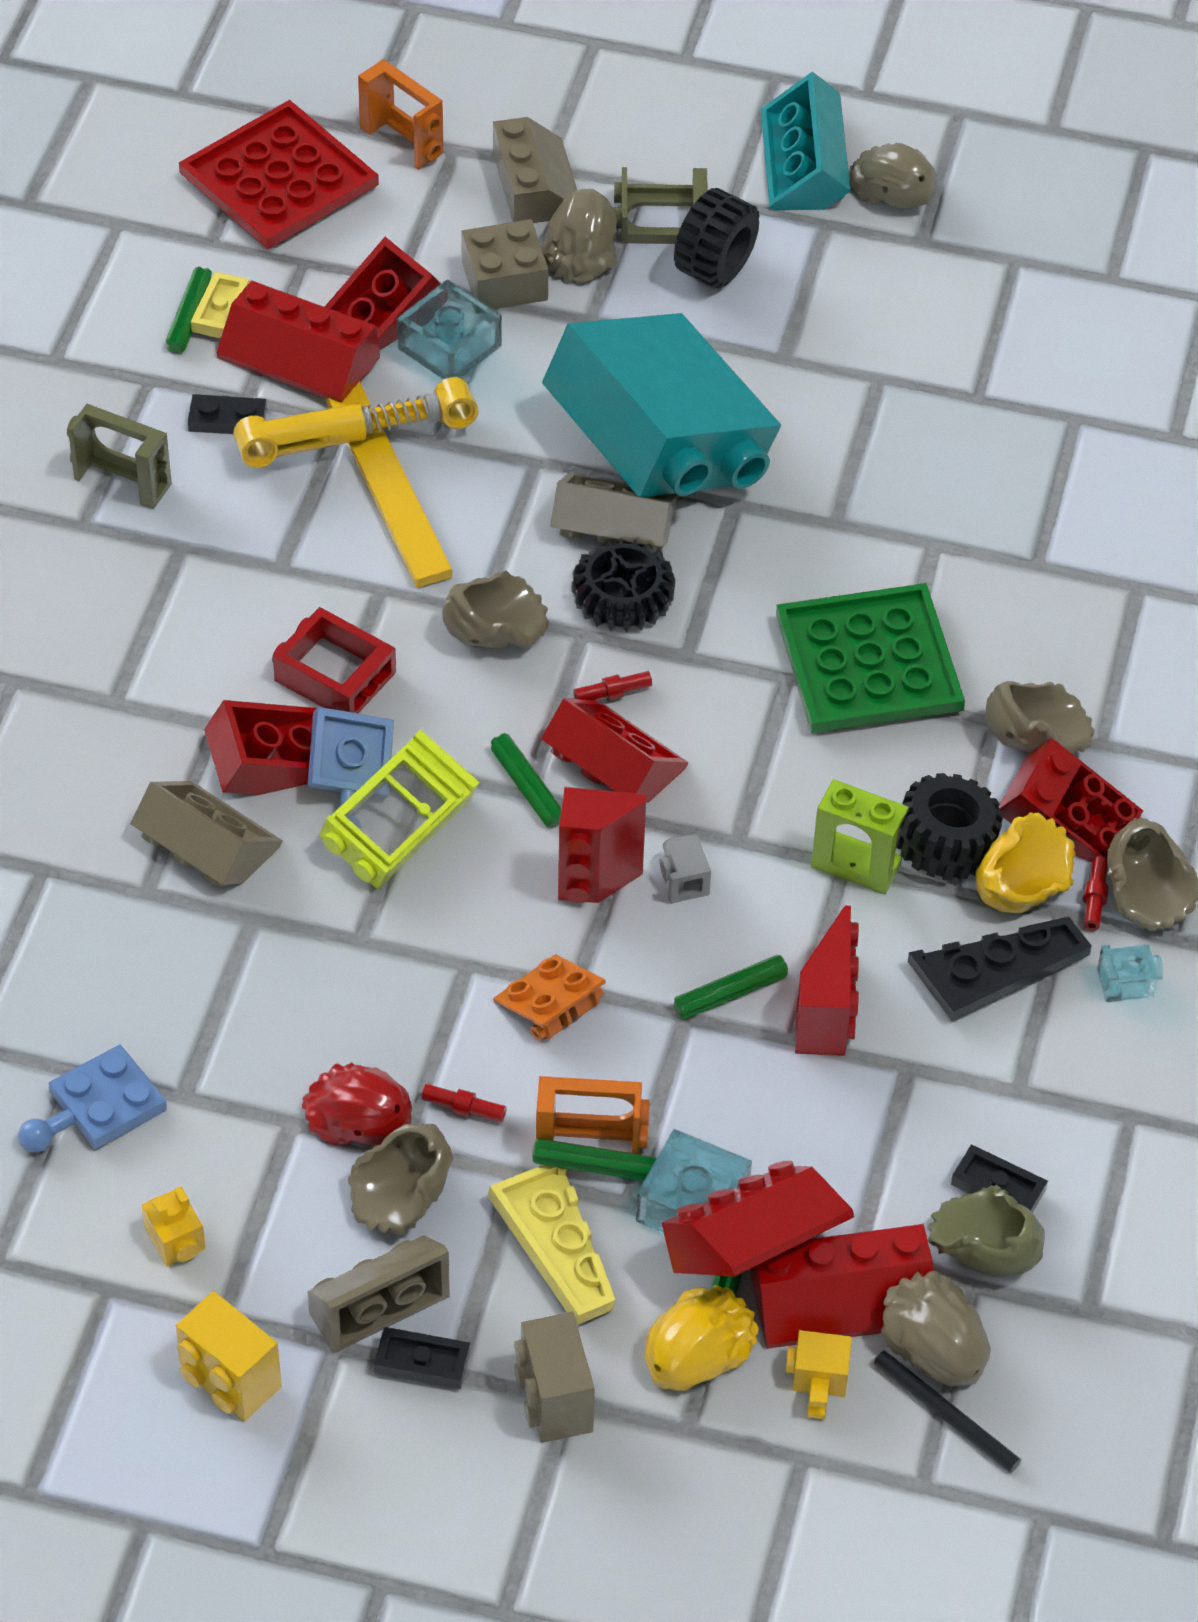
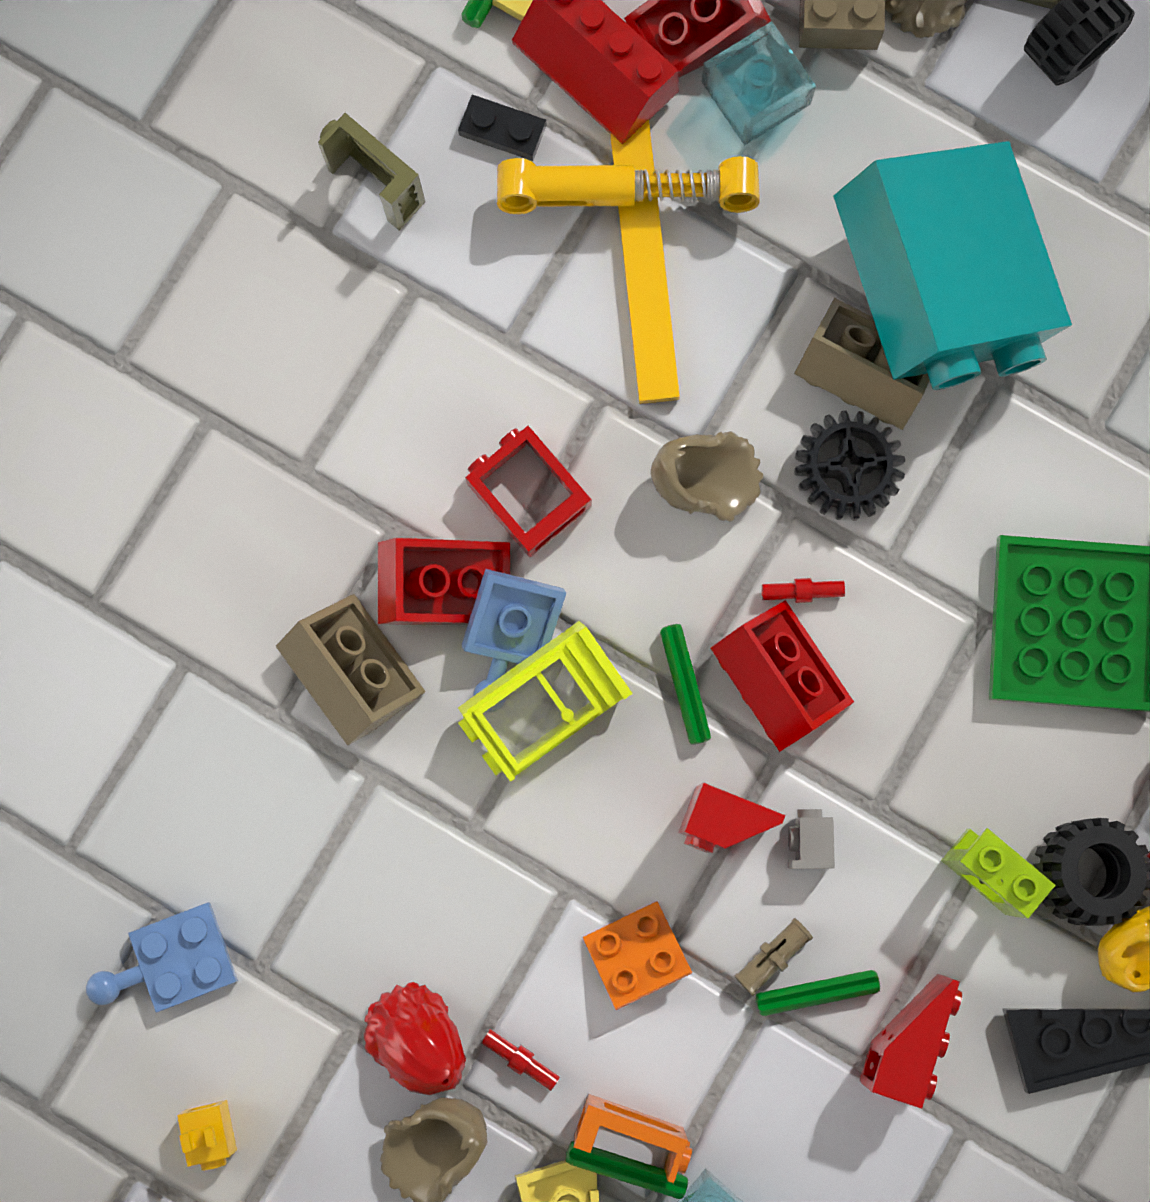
camera: 20 degrees right, 30 degrees up
(679, 966) = (773, 956): none -> dark tan pin

